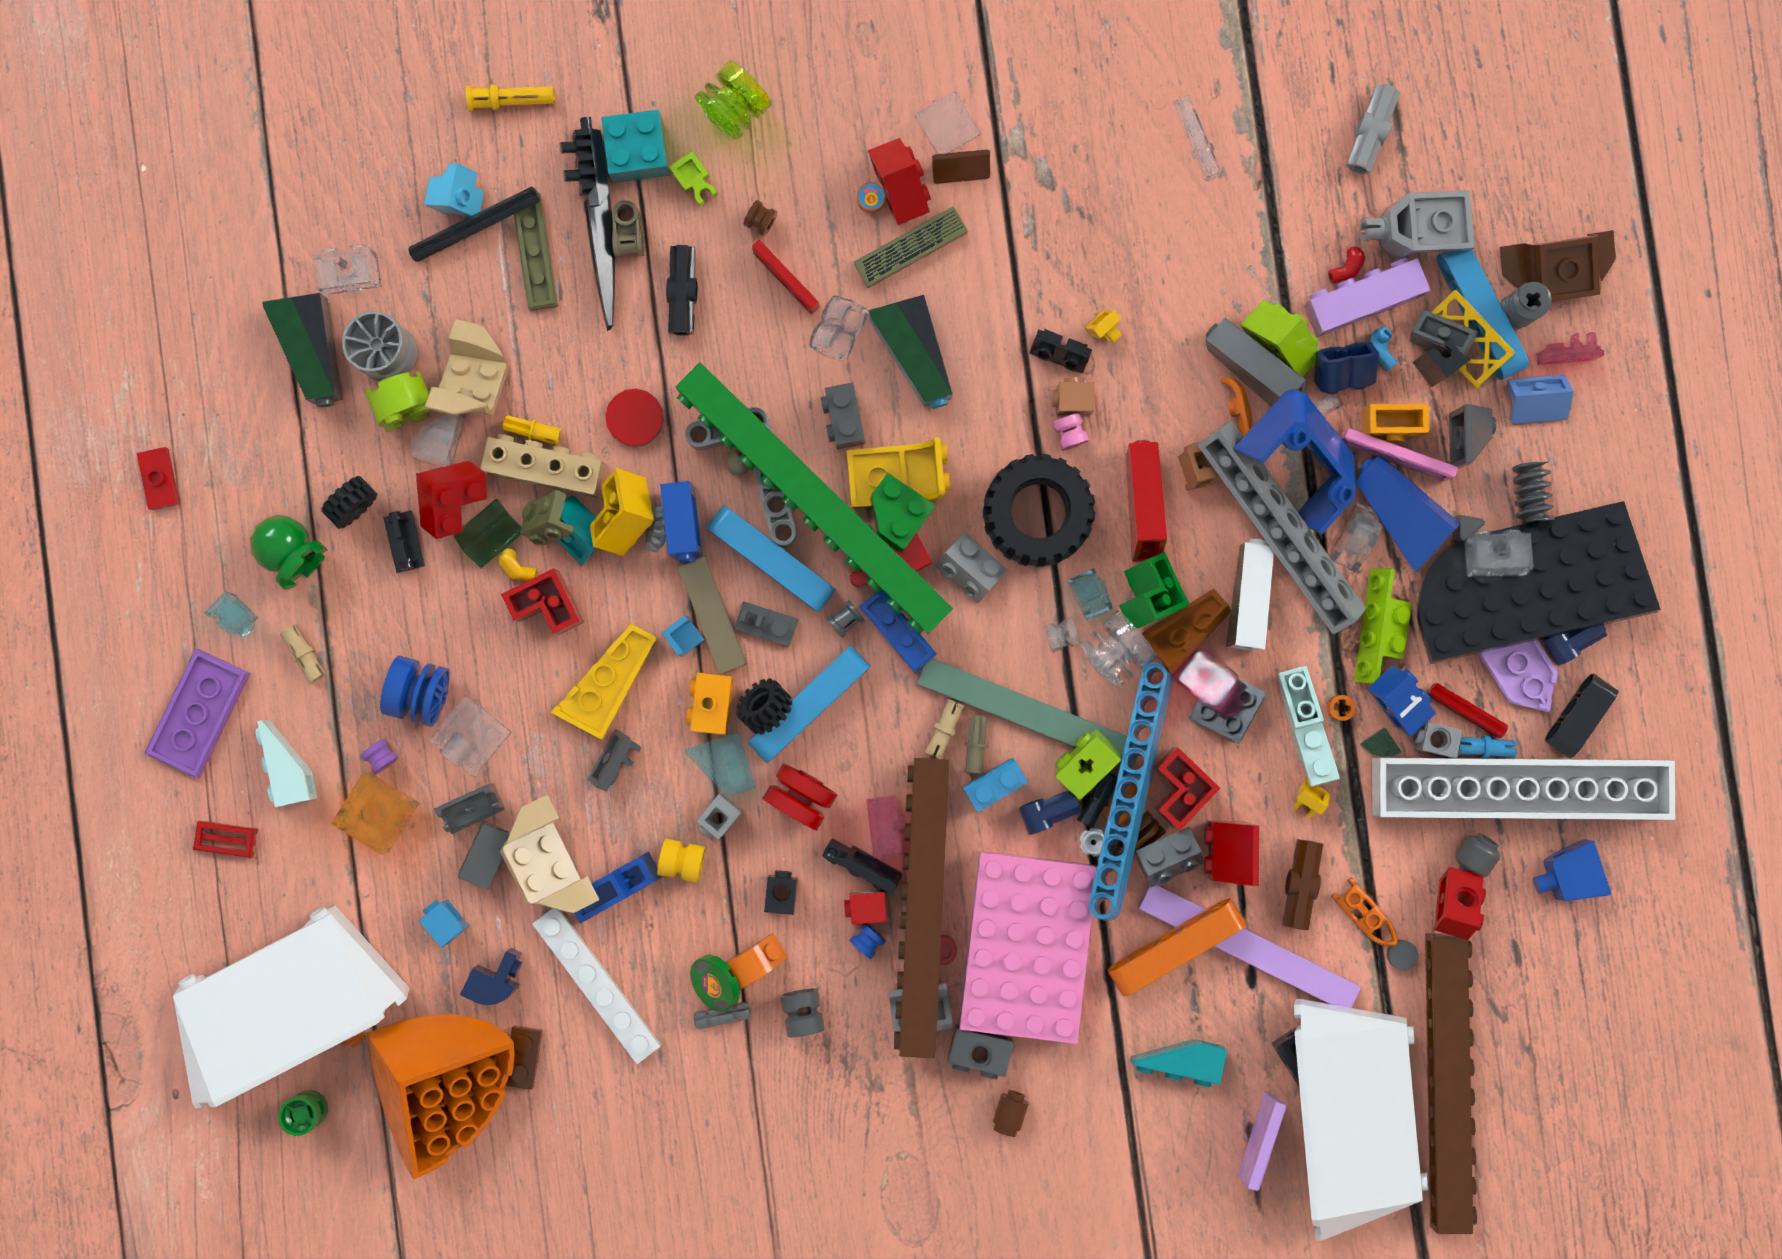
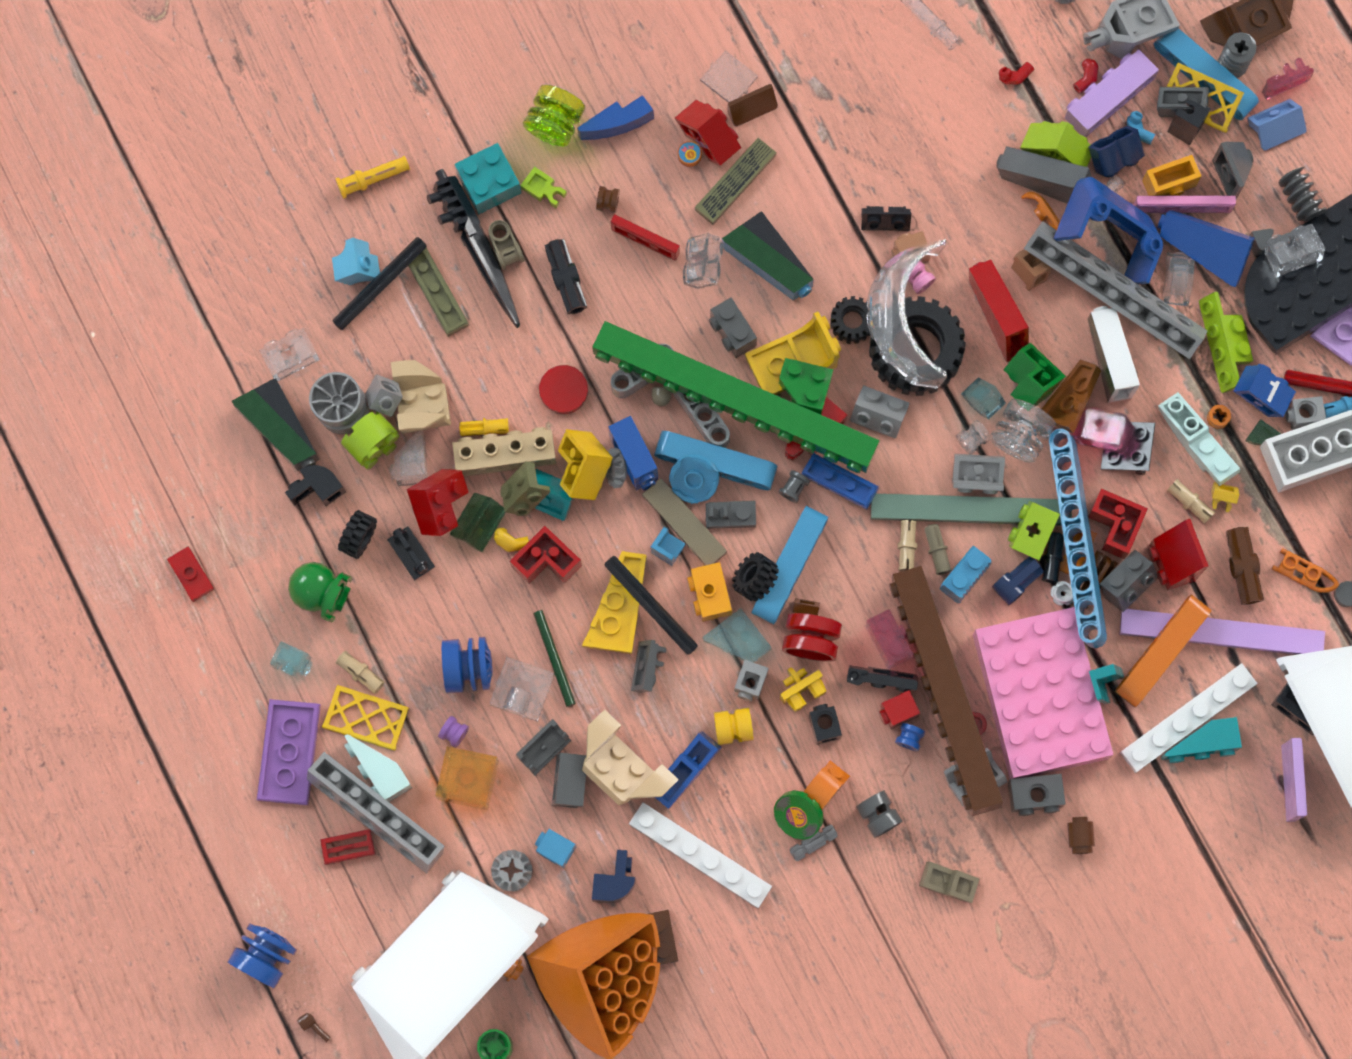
camera: 15 degrees left, 10 degrees down
(87, 928) = (262, 955): none -> blue wheel
(120, 1010) = (307, 1021): none -> reddish brown hand
(261, 816) = (375, 812): none -> light grey brick
(316, 698) = (359, 697): none -> yellow window
(333, 430) = (315, 479): none -> black brick
(403, 923) = (519, 879): none -> light grey gear
(430, 356) = (383, 395): none -> light grey brick
(517, 713) = (554, 658): none -> dark green bar
(640, 695) = (651, 605): none -> black axle
(738, 571) = (694, 478): none -> dark azure tile
(758, 850) = (793, 695): none -> yellow hips
(803, 130) = (617, 120): none -> blue slope
(808, 758) = (806, 606): none -> reddish brown plate
(851, 1110) = (949, 882): none -> dark tan slope
(984, 436) = (841, 329): none -> black tyre
(1014, 470) = (888, 319): none -> clear windscreen
(1052, 677) = (978, 473): none -> light grey bracket
(1094, 955) = (1104, 675): none -> teal panel
(1104, 325) = (913, 186): yellow tile -> none
(1176, 1026) = (1188, 718): none -> white plate
(1266, 238) = (1011, 77): none -> red arm
(1272, 791) = (1190, 501): none -> tan pin

